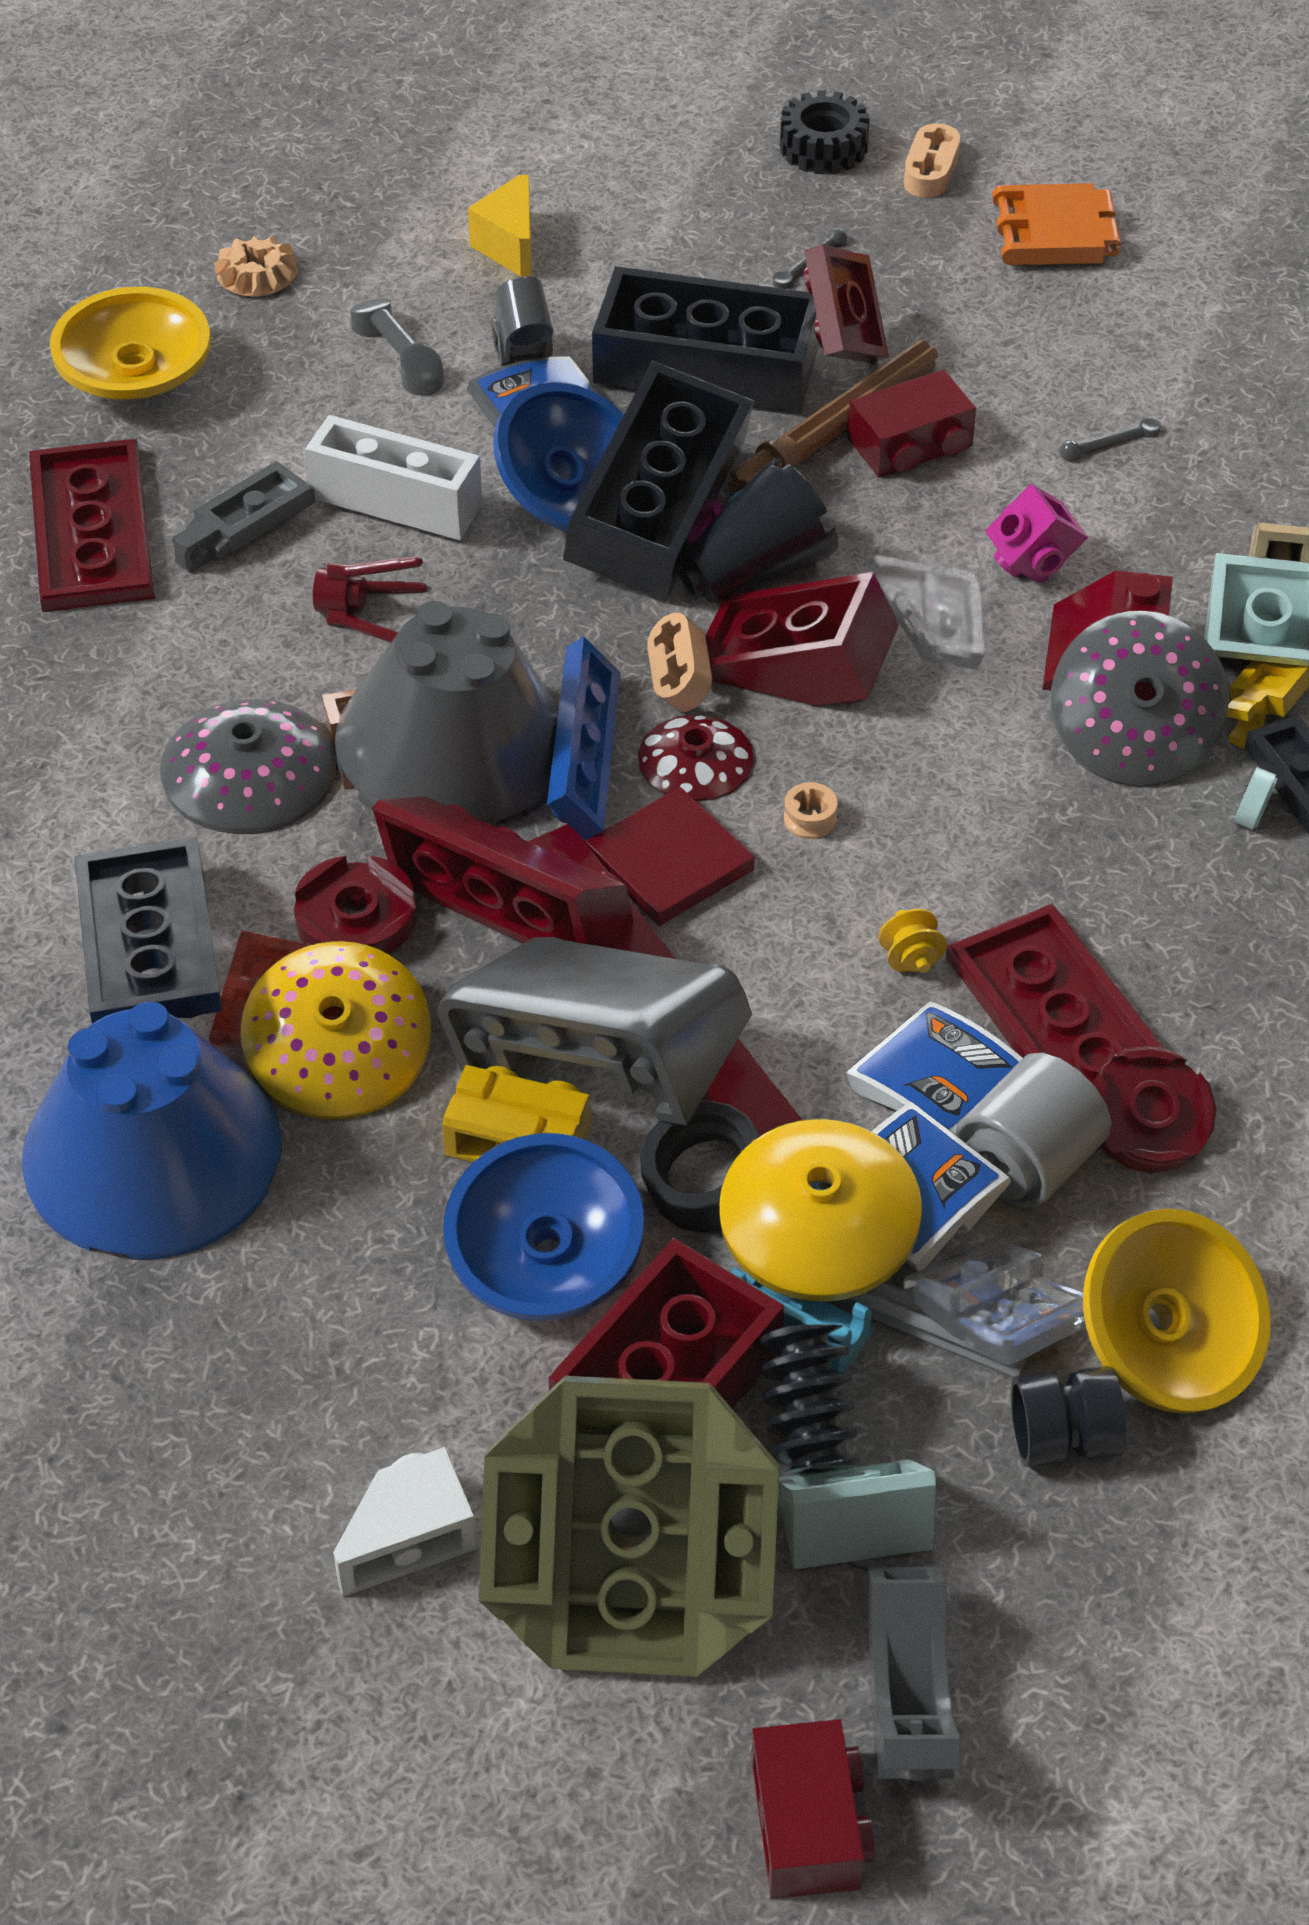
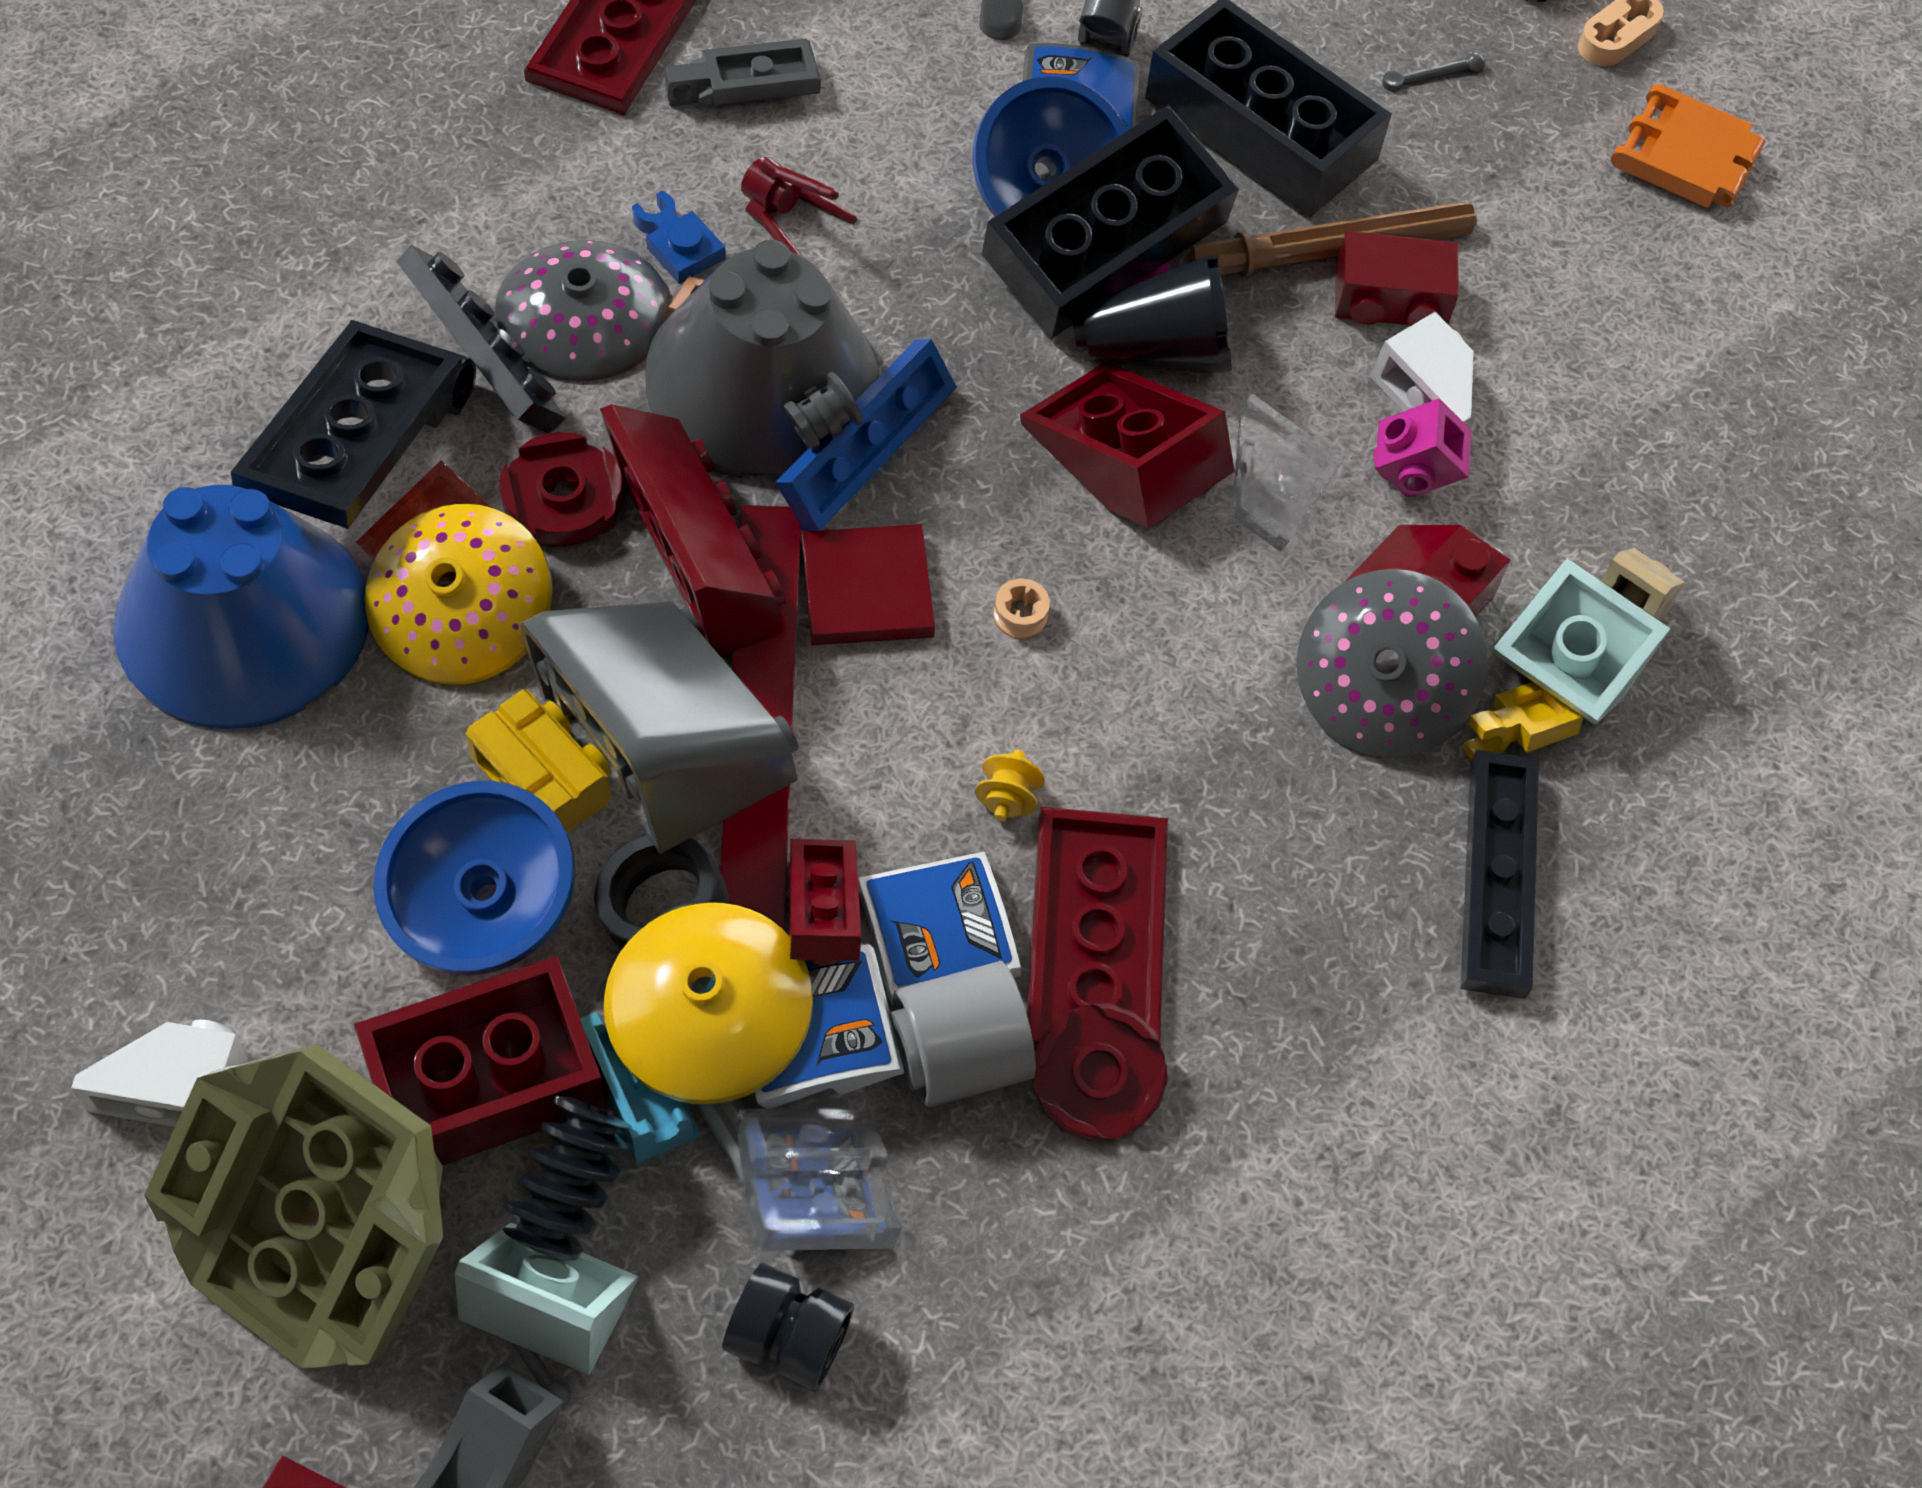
camera: 25 degrees right, 10 degrees up
(166, 814) = (490, 348): none -> black plate
(291, 674) = (679, 244): none -> blue plate
(394, 477) = (890, 103): white brick -> none
(552, 726) = (823, 412): none -> dark grey bush
(679, 662) = (1010, 405): light nougat beam -> none
(698, 754) = (961, 520): dark red dish -> none
(845, 304) = (1408, 134): dark red plate -> none
(849, 1090) = (824, 901): none -> dark red plate
(989, 476) = (1427, 365): none -> white slope
(1071, 450) = (1625, 395): dark grey hinge -> none
(1206, 1302) = (986, 1324): yellow dish -> none
(1256, 798) = (1435, 820): light aqua tile -> none

